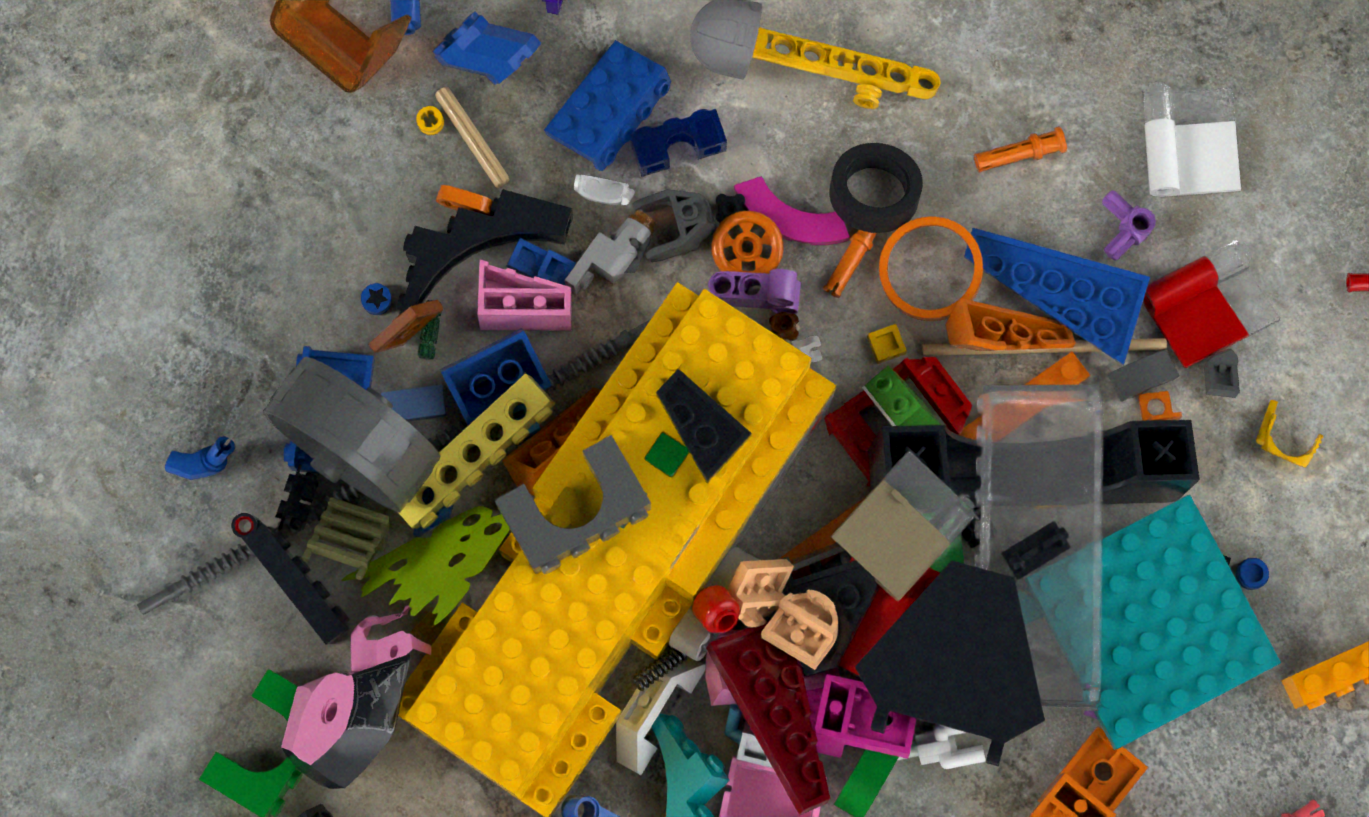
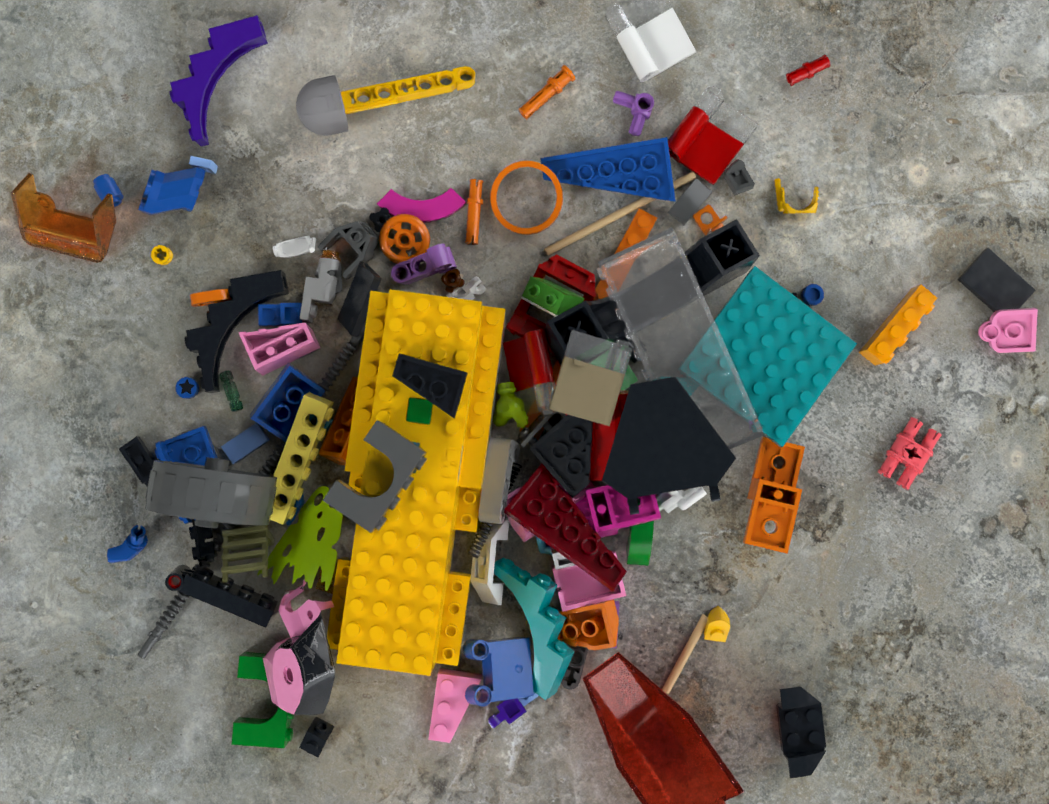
camera: 30 degrees left, 10 degrees up
(270, 360) = (138, 458): none -> black hinge
(406, 326) = (213, 399): dark orange plate -> none
(472, 137) = (194, 252): tan axle -> none
(542, 34) = (202, 163): none -> light blue tile
(609, 105) = (271, 189): blue bracket -> none
(649, 292) = (356, 302): none -> black tile
(699, 130) = (338, 178): clear blue arch -> none
(716, 609) = (498, 488): red head -> none
(759, 588) = (519, 460): light nougat slope -> none
(778, 521) = (509, 406): none -> lime animal
(804, 627) = (558, 469): light nougat slope -> none
(827, 490) = (531, 371): none -> red door
(867, 96) = (433, 103): yellow bush -> none
(879, 157) = (462, 139): black tyre -> none
(886, 343) = (521, 259): yellow tile -> none
(996, 328) = (591, 216): orange wedge -> none
(1036, 549) = (678, 349): black hinge -> none

